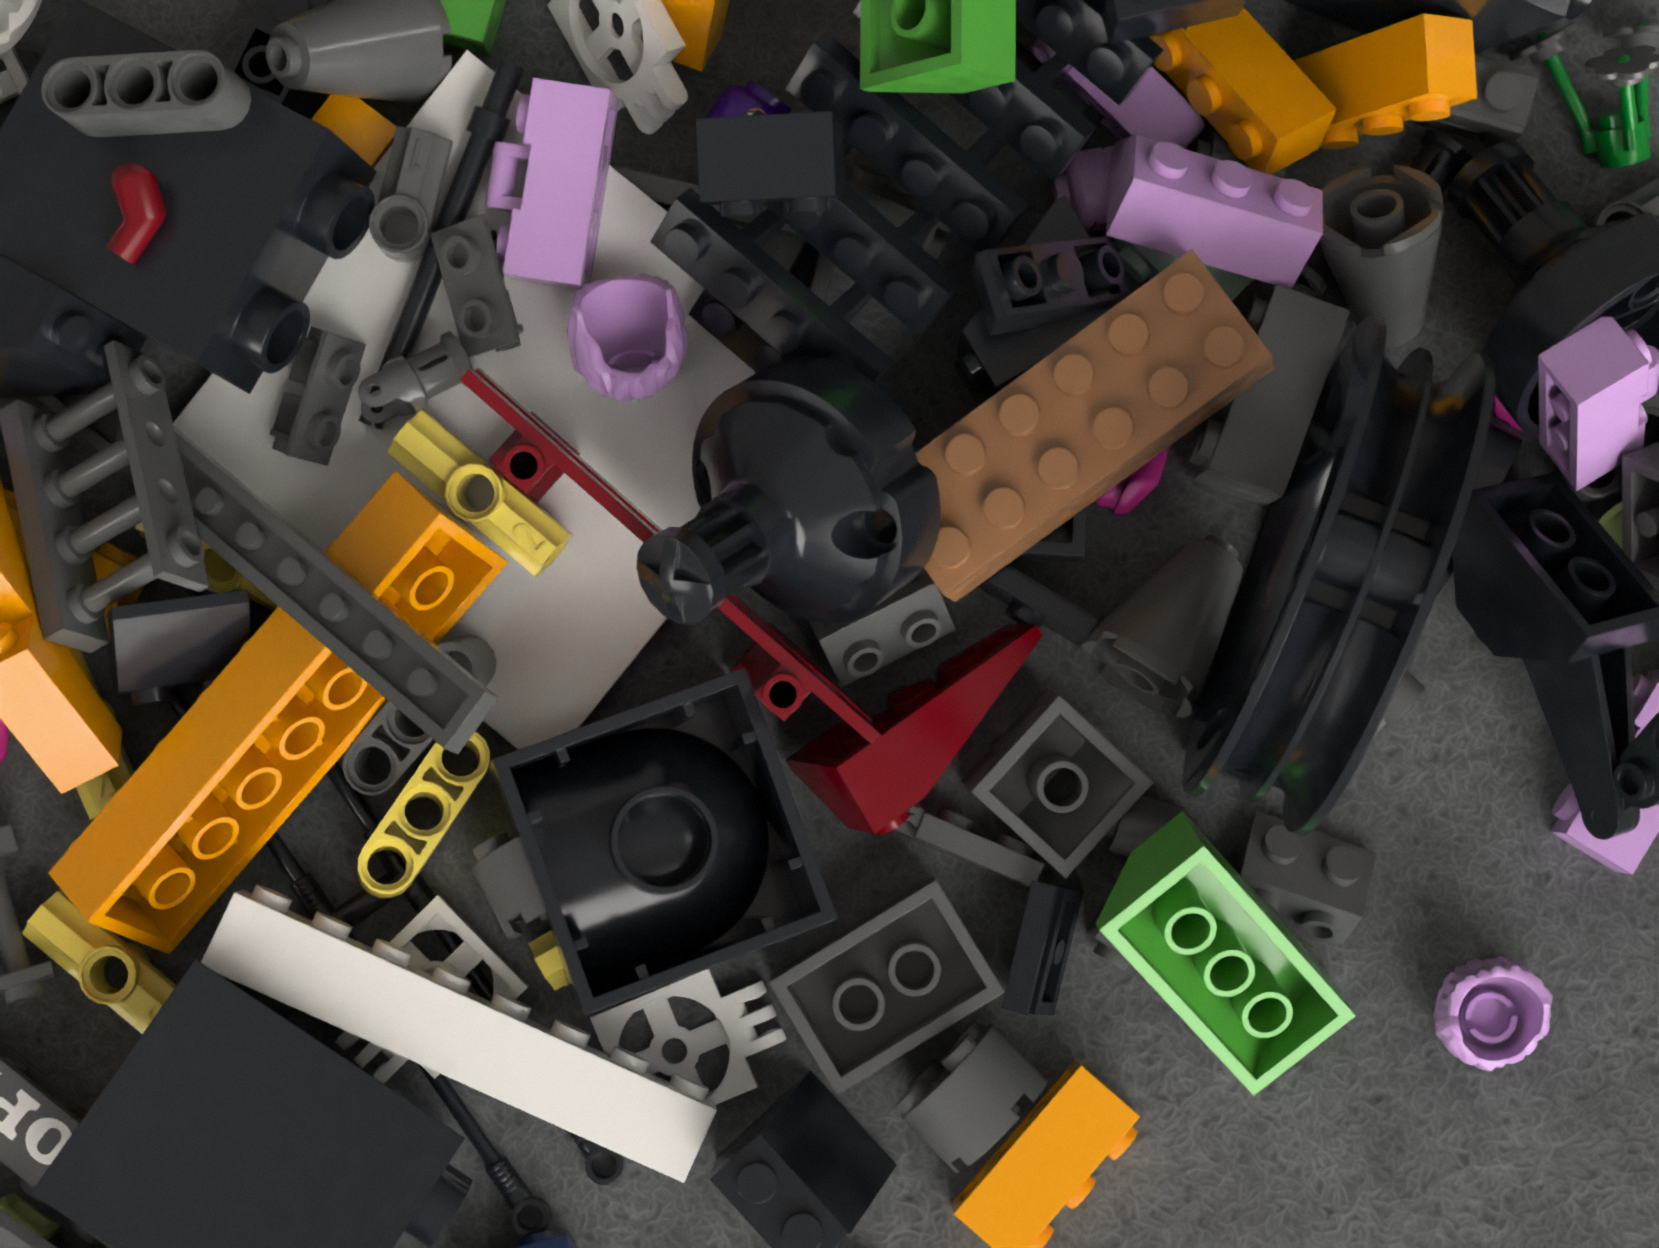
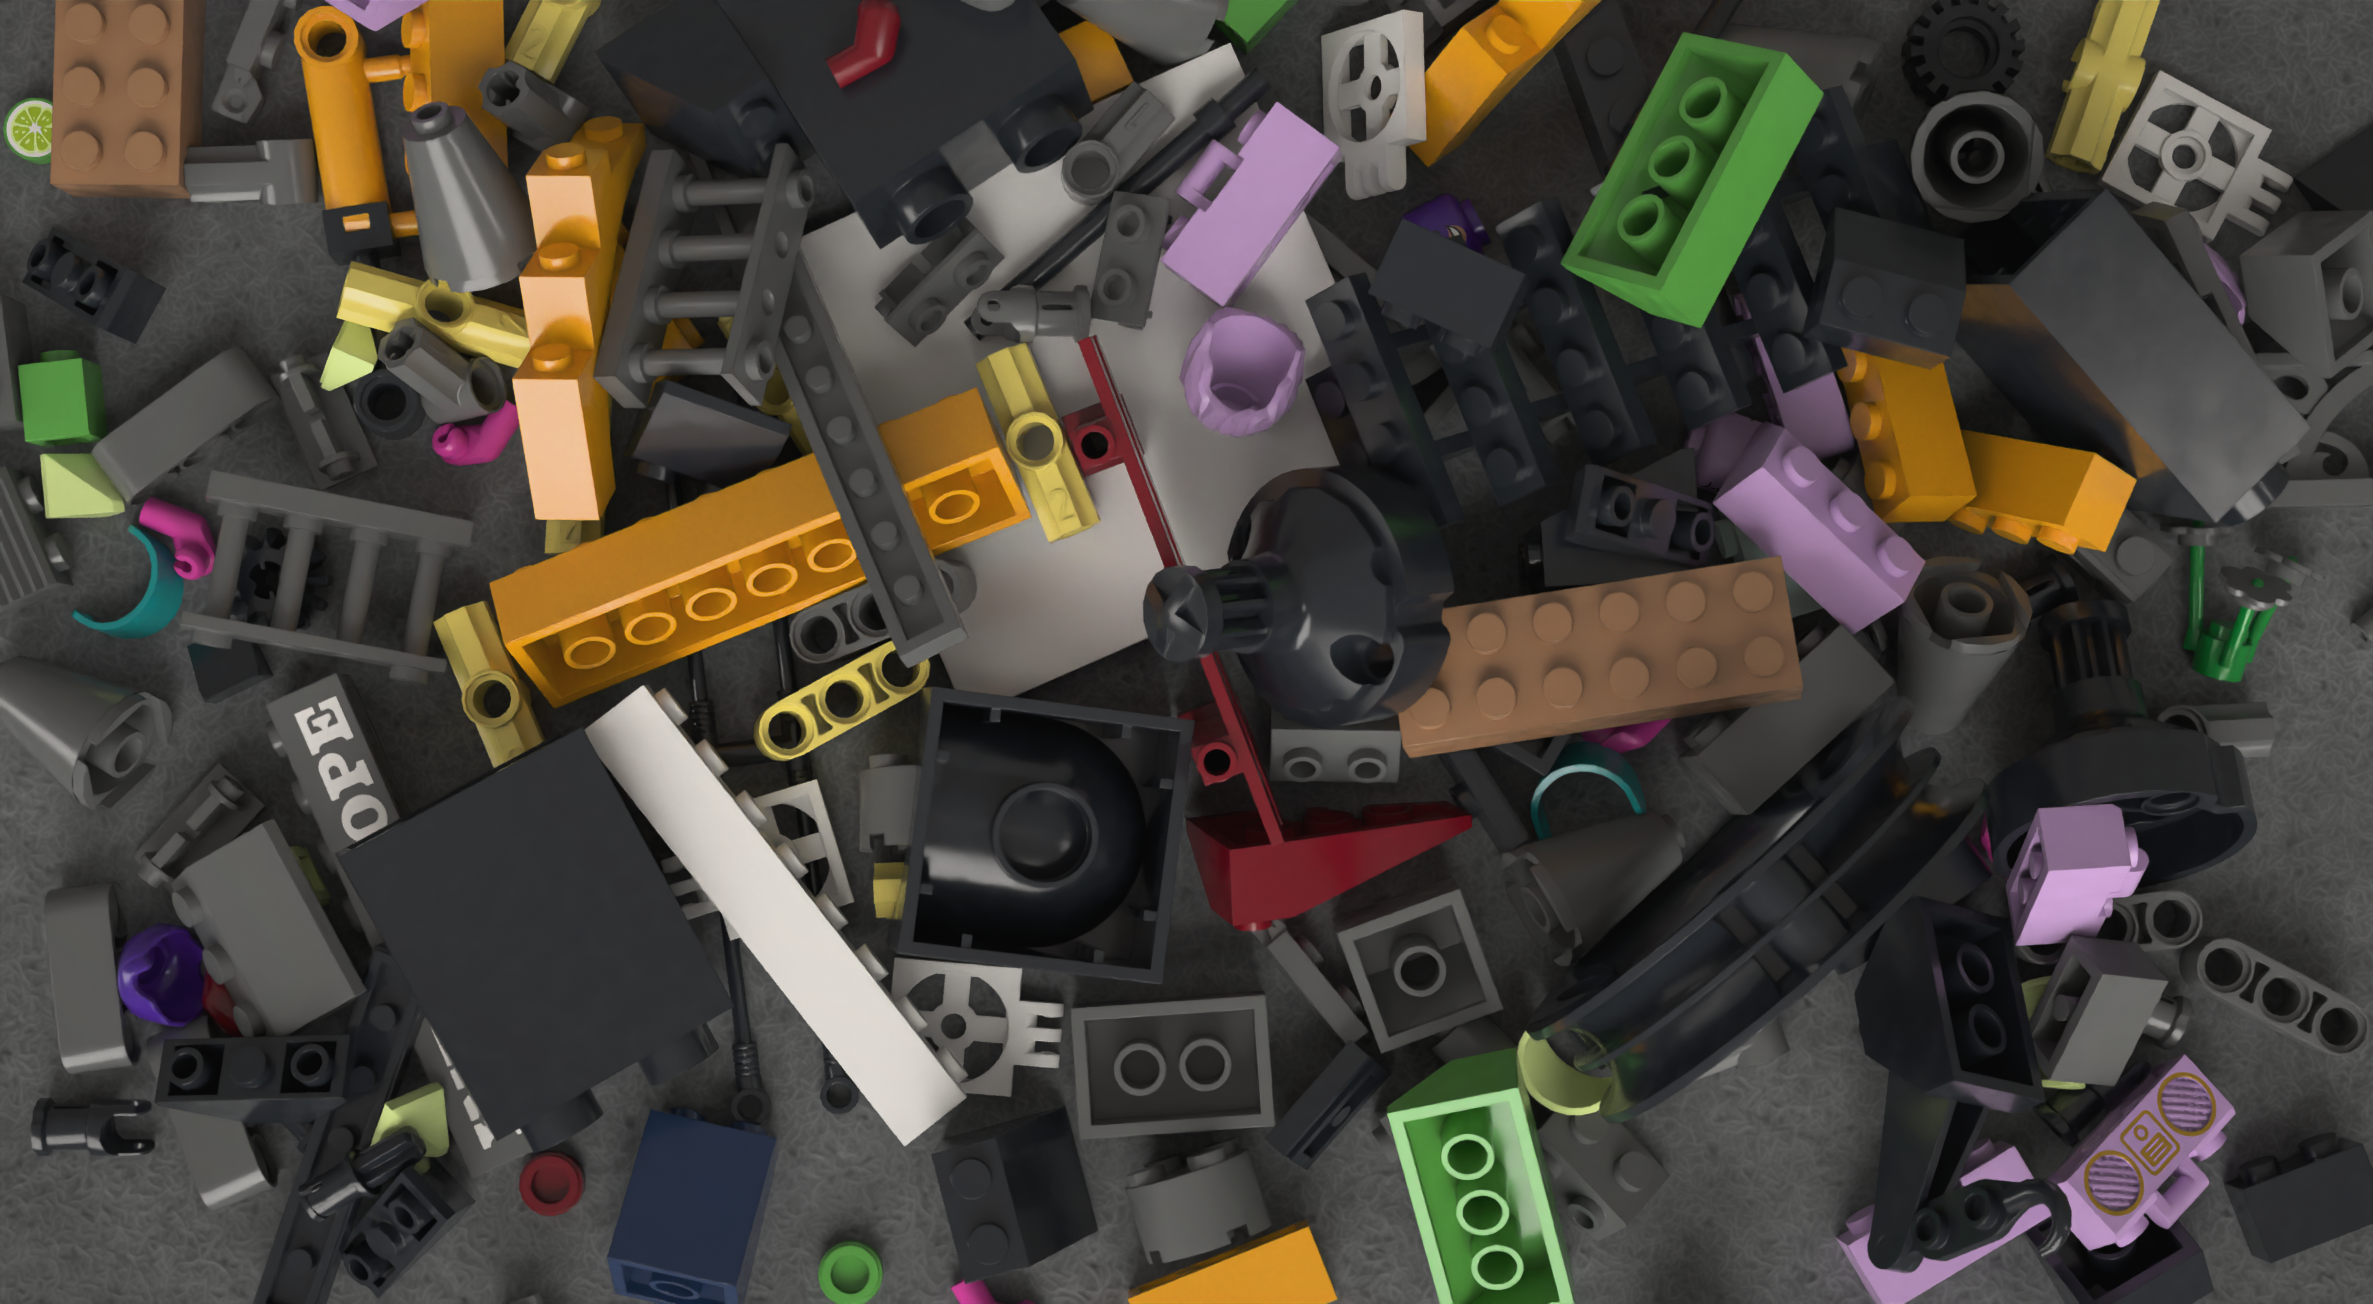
camera: 25 degrees right, 0 degrees up
(1112, 521) = (1587, 758): none -> teal helmet
(1235, 823) = (1555, 1082): none -> yellowish green helmet

